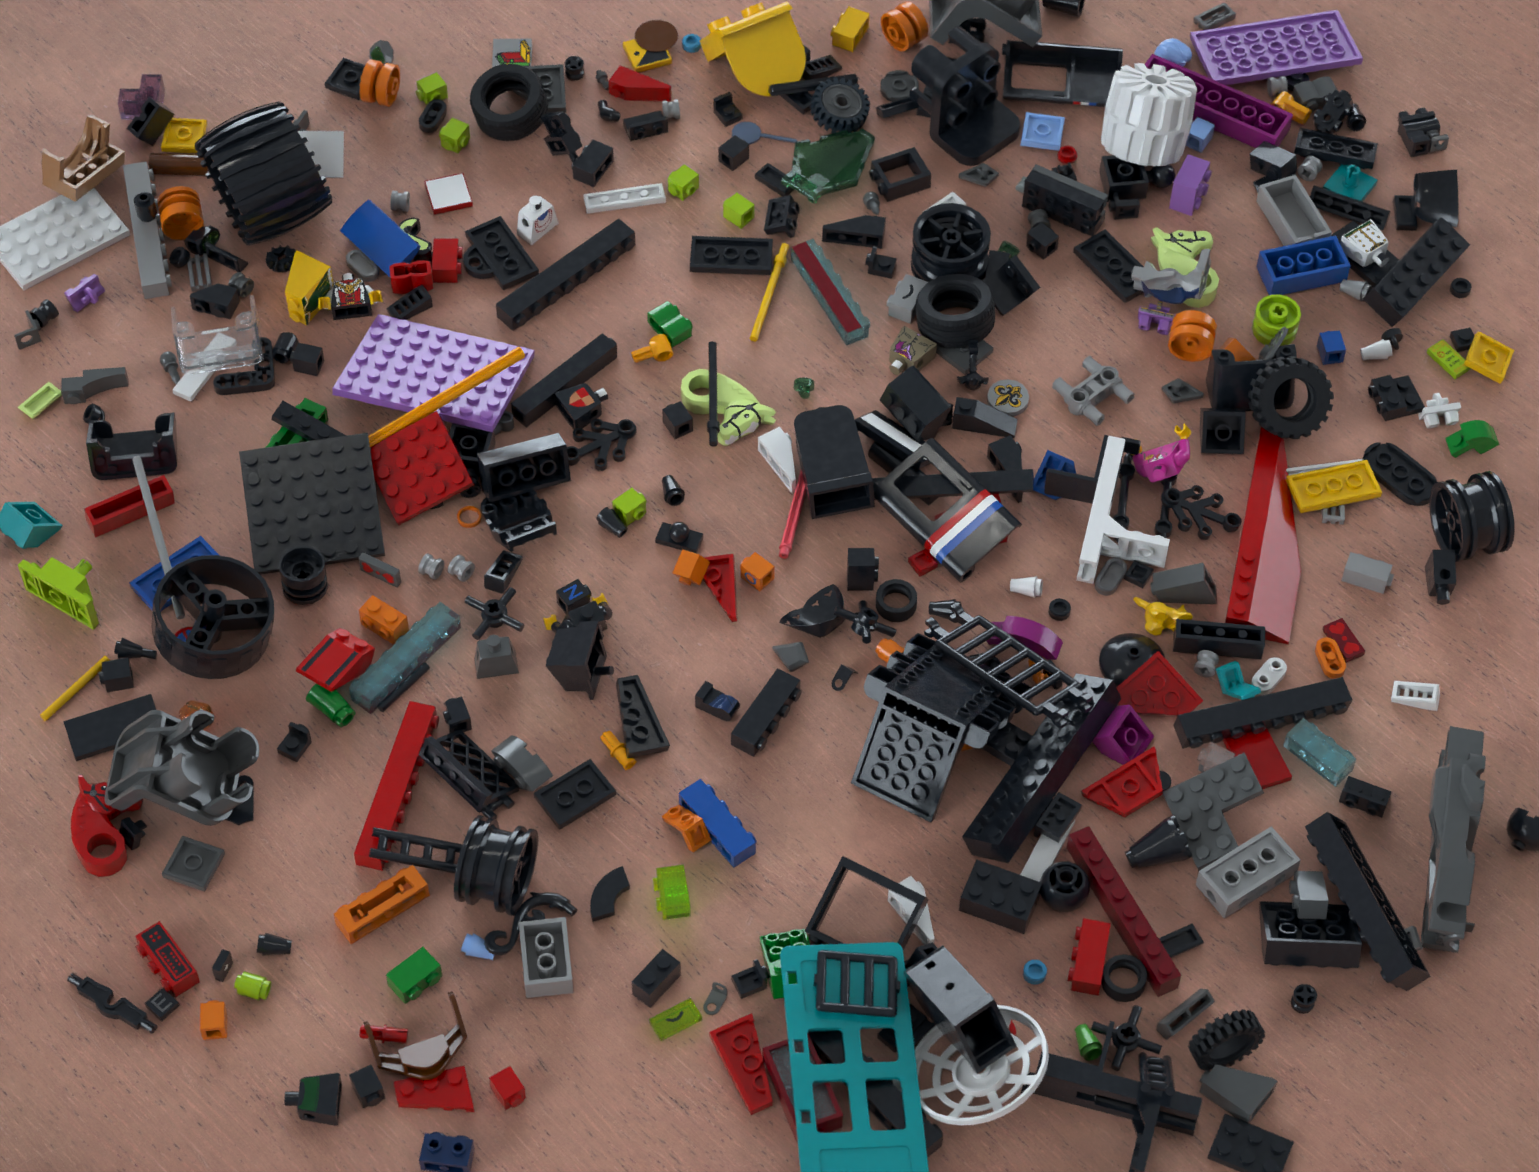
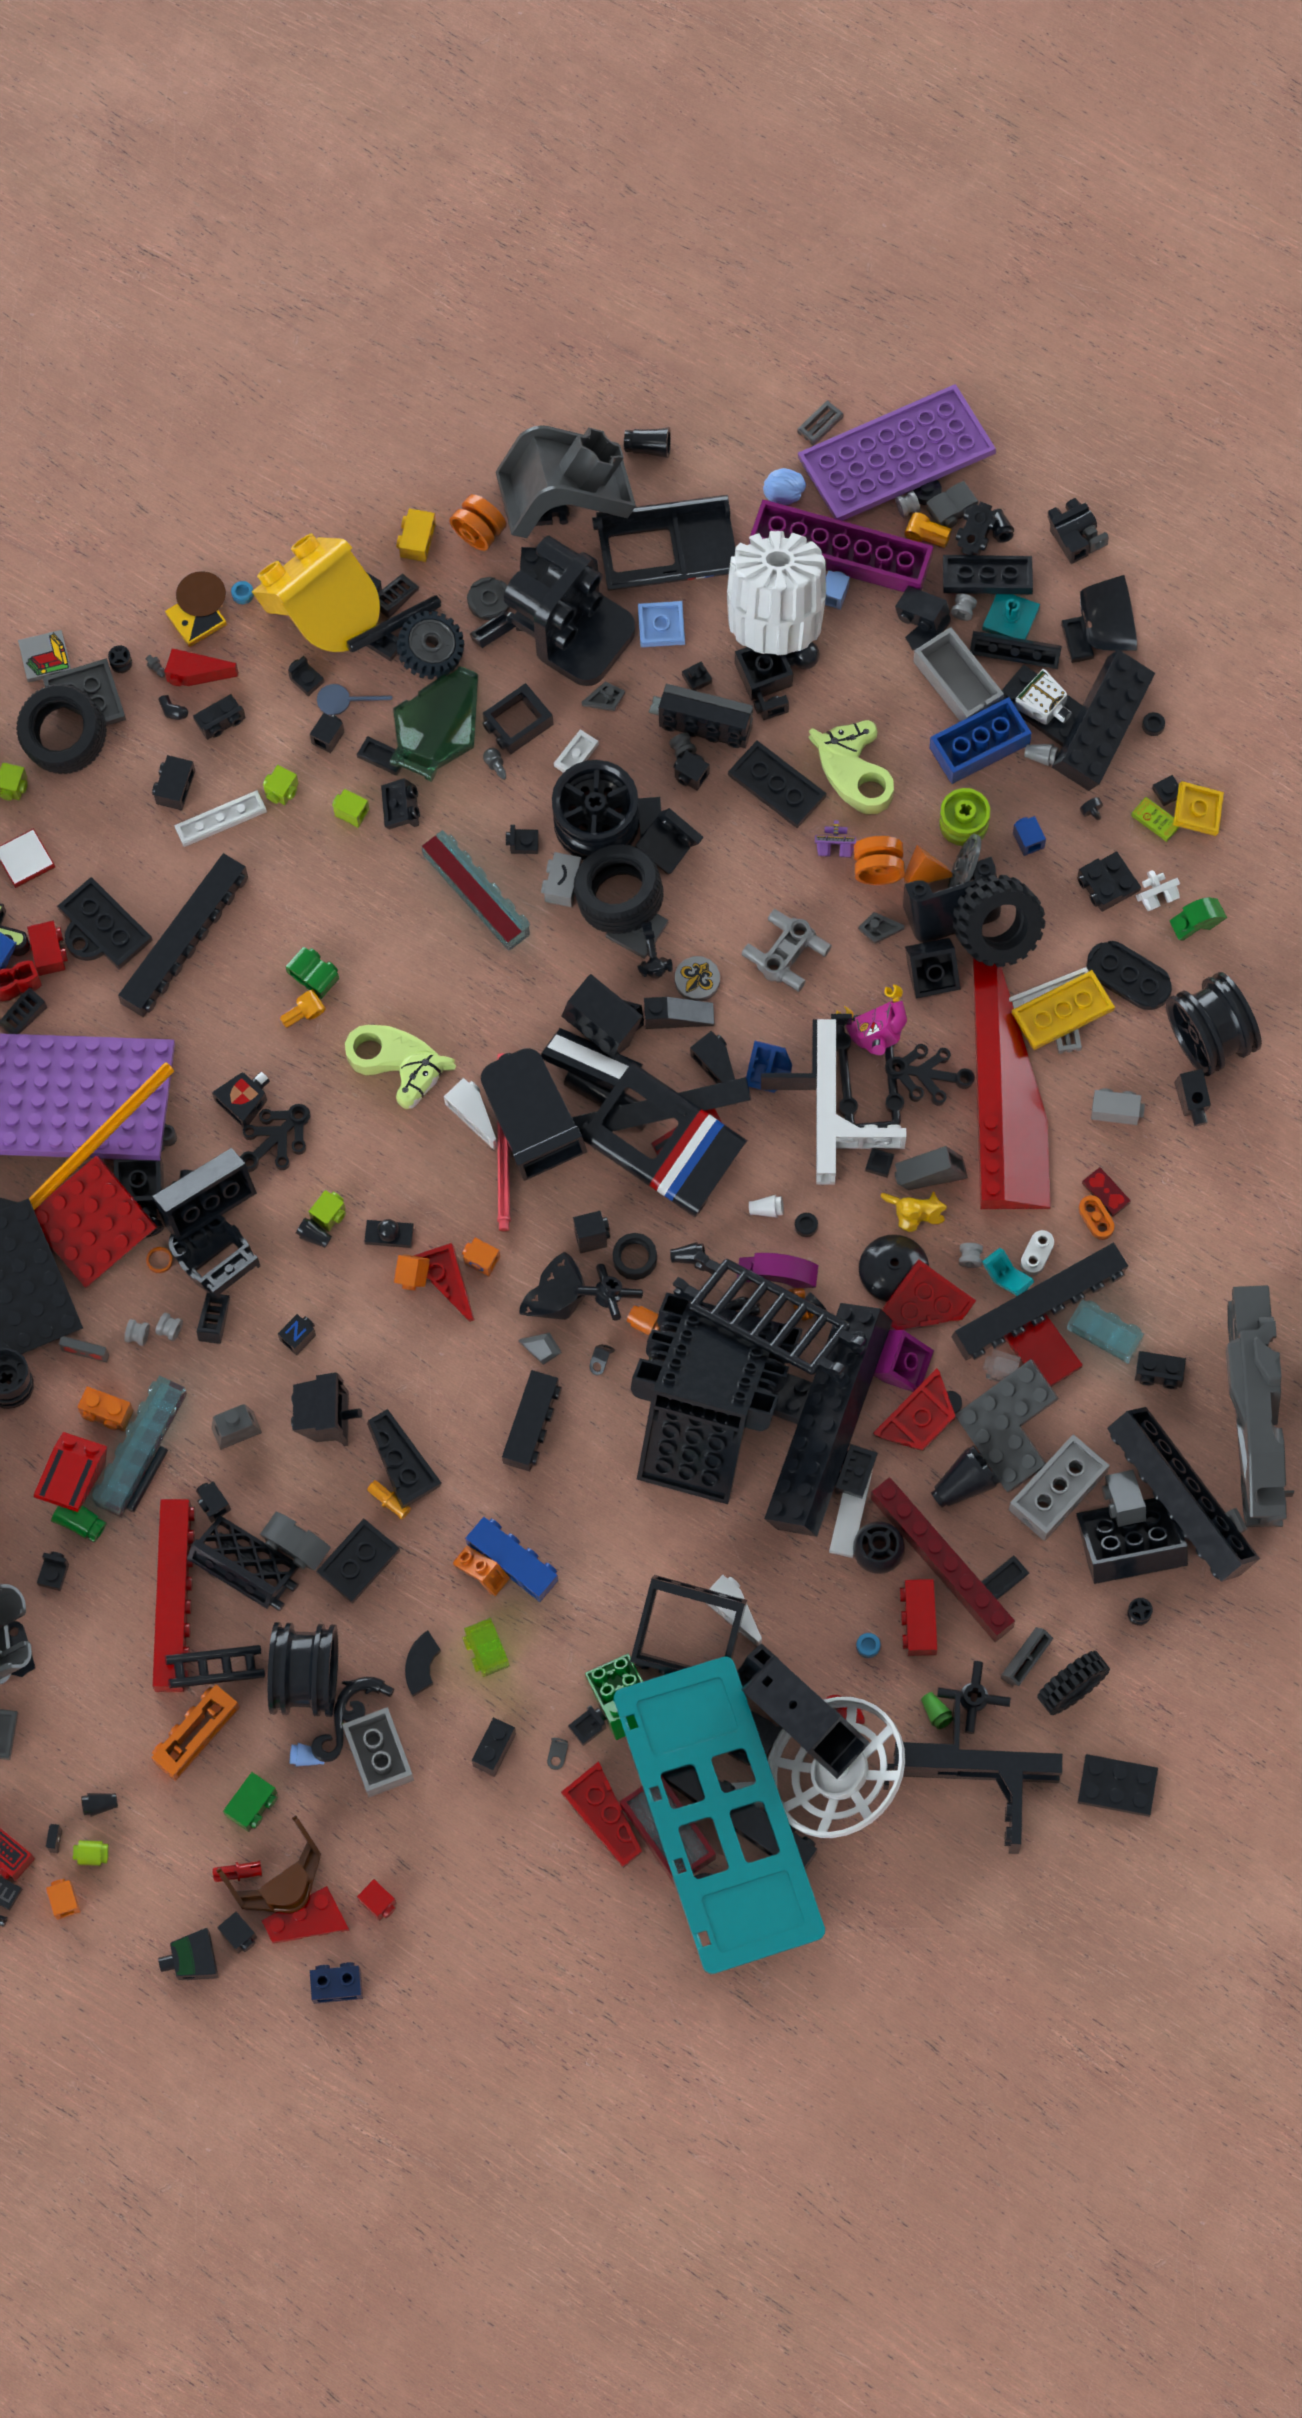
camera: 10 degrees left, 15 degrees up
(494, 613) = (214, 1365): black bar -> none
(536, 219) = (134, 872): white torso -> none
(561, 137) = (131, 761): black plate -> none
(571, 373) = (217, 1069): black brick -> none
(593, 611) = (316, 1361): black torso -> none
(671, 109) = (242, 691): light grey wheel -> none
(672, 491) = (368, 1180): black cone -> none
(675, 1019) = (523, 1784): clear neon green tile -> none
(677, 420) = (351, 1091): black brick -> none
(713, 424) = (393, 1095): black bar -> none
(716, 702) = (477, 1421): black leg -> none
(731, 255) = (357, 867): black plate -> none
(779, 263) = (411, 863): yellow bar -> none
(804, 385) = (476, 1015): clear green tile -> none
(844, 1006) = (691, 1741): black bar -> none
(858, 231) = (491, 804): black slope -> none
(910, 350) = (580, 947): dark tan torso -> none
(922, 562) = (651, 1202): red tile -> none
(1000, 896) = (816, 1573): black brick -> none
(1009, 248) = (658, 789): clear green tile -> none
(1067, 154) = (695, 649): red plate -> none
(1110, 576) = (851, 1172): flat silver tile -> none
(1127, 962) = (958, 1613): black tyre -> none
(1156, 1073) = (1003, 1743): black bar -> none
(1169, 284) = (843, 807): light grey hips -> none
(1190, 185) = (839, 664): medium lavender brick -> none
(1220, 638) = (978, 1225): black brick -> none
(1237, 1091) = (1093, 1728): dark grey slope -> none
(1377, 350) = (1078, 828): white cone -> none
(1416, 701) = (1191, 1247): white slope -> none

